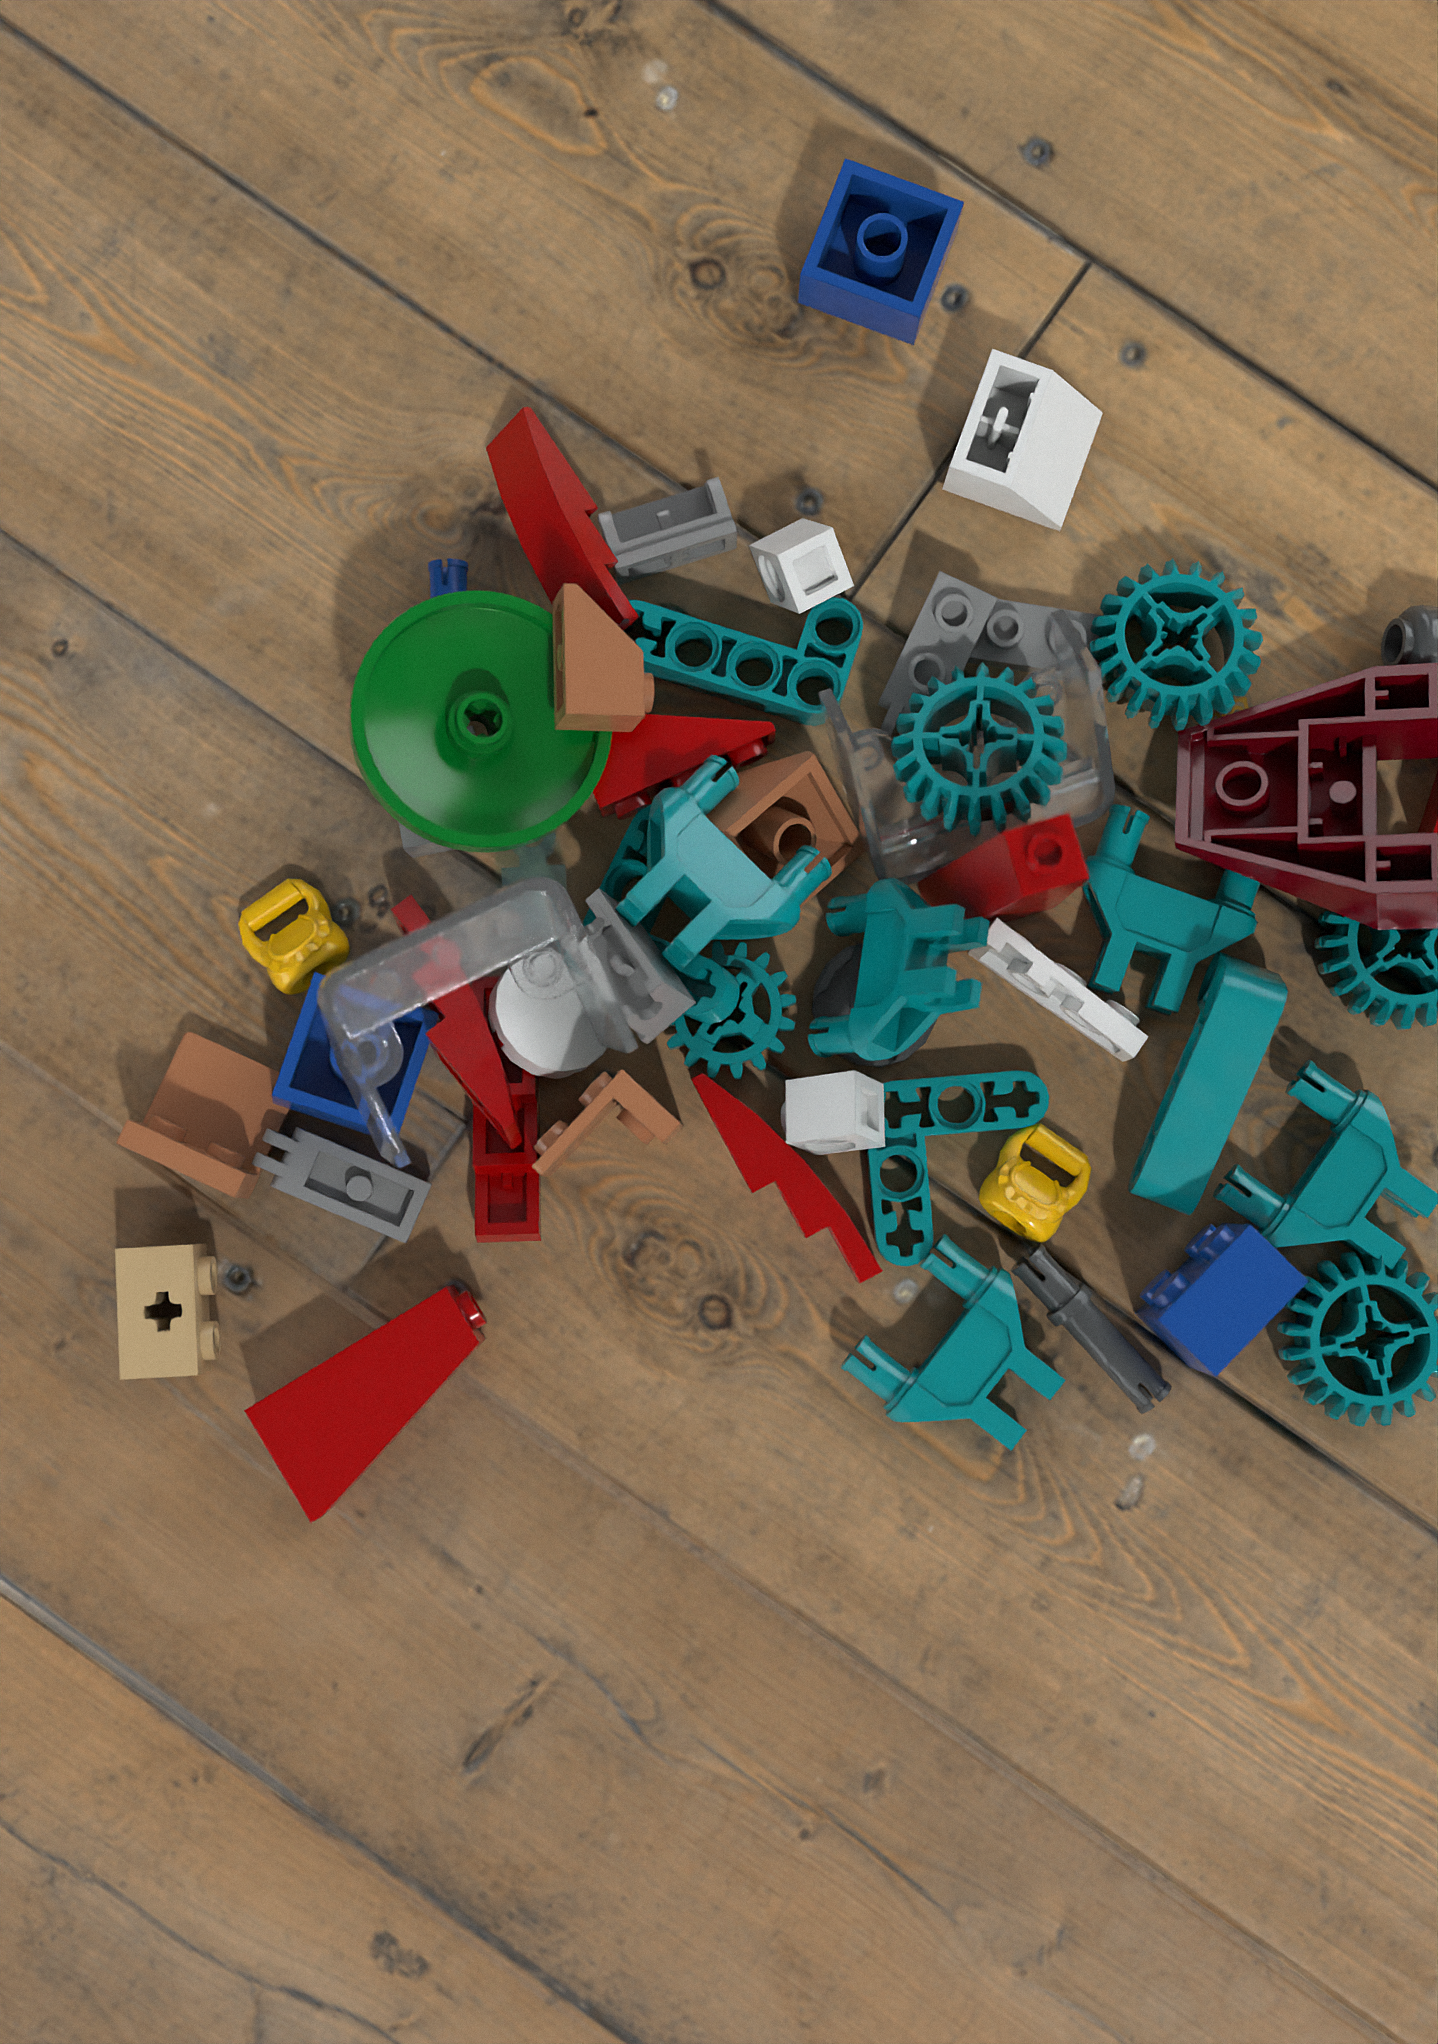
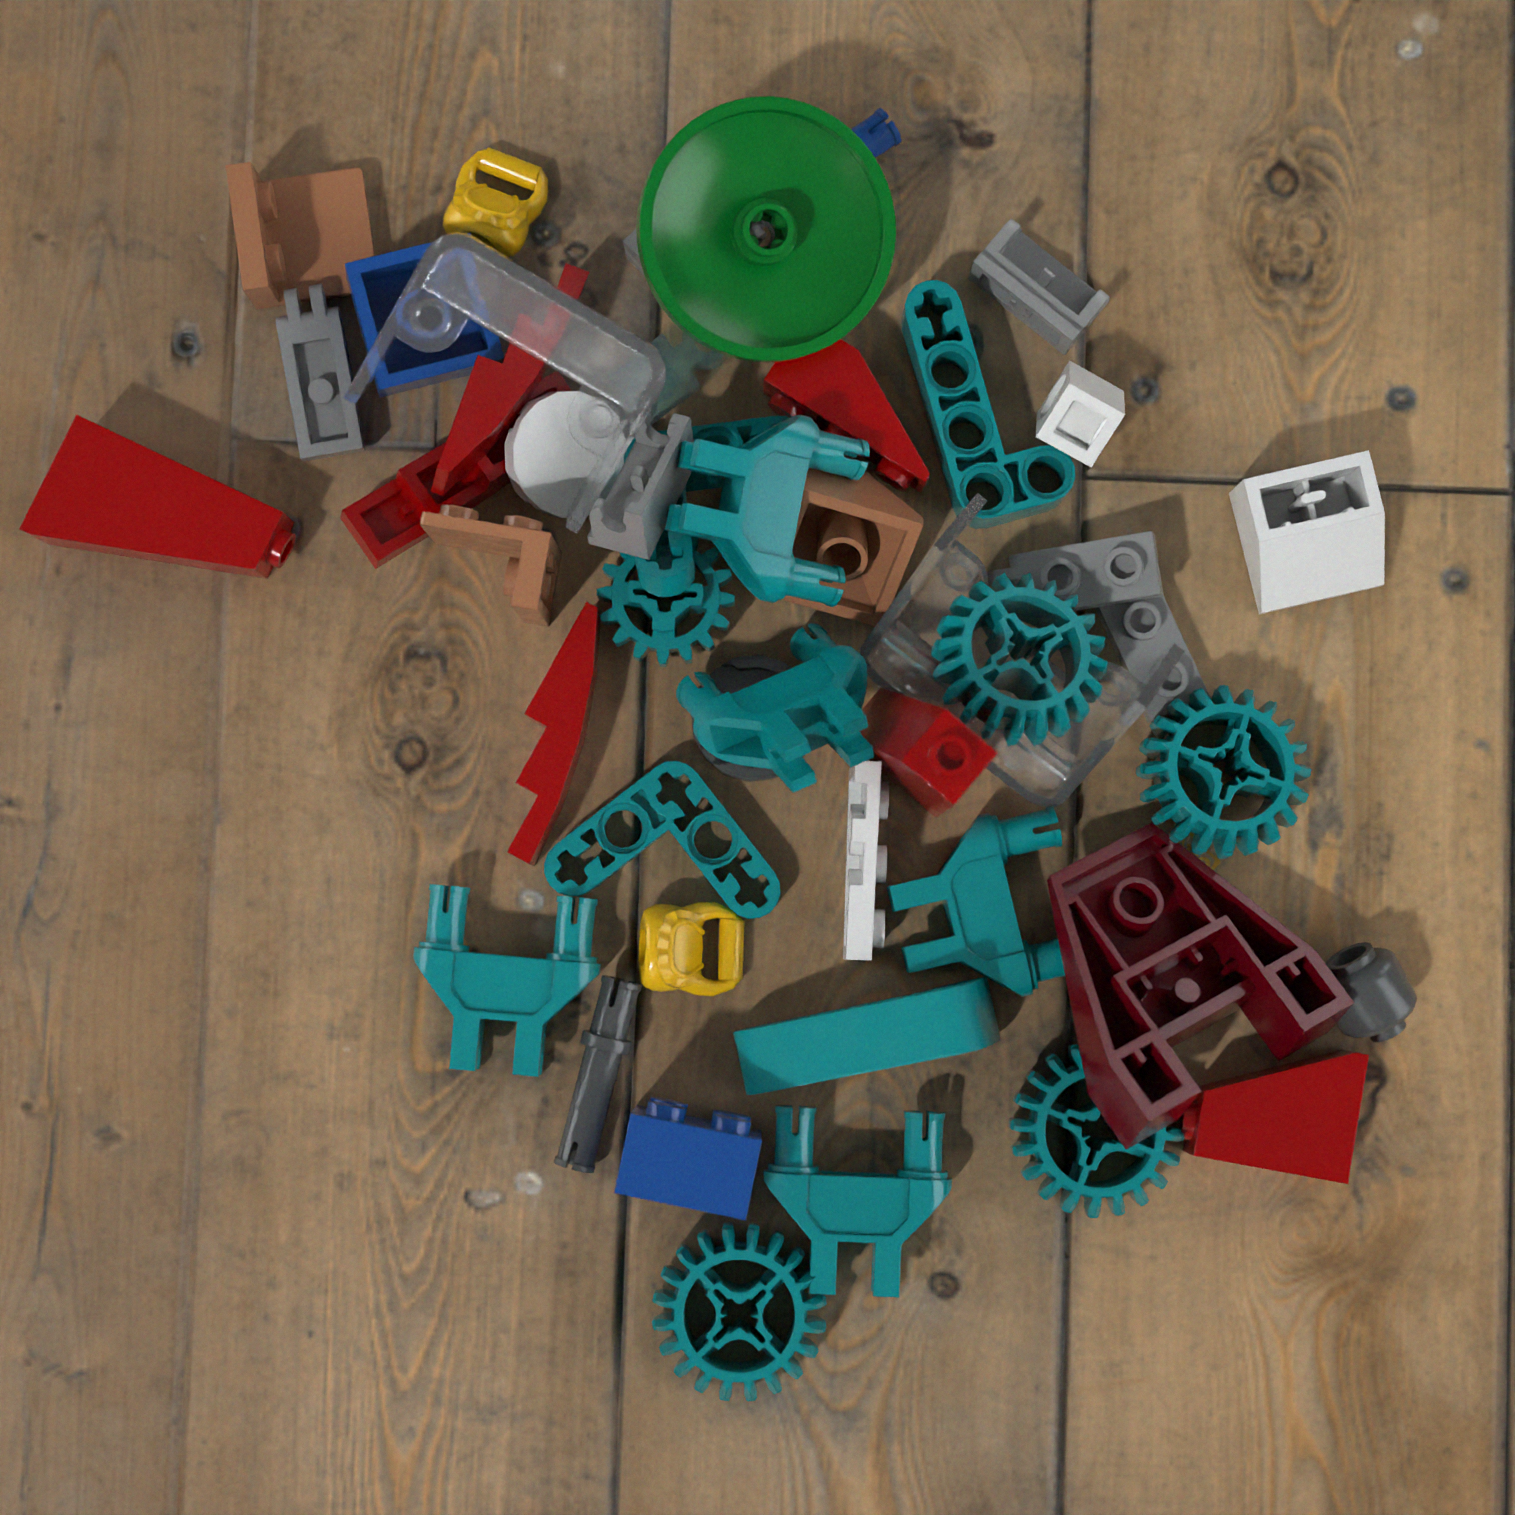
camera: 55 degrees right, 0 degrees up
(155, 1343) = (87, 308): tan brick -> none
(553, 514) = (975, 188): red slope -> none
(595, 668) = (870, 295): nougat slope -> none
(834, 1113) = (636, 740): white brick -> none
(879, 251) = (1392, 305): blue brick -> none

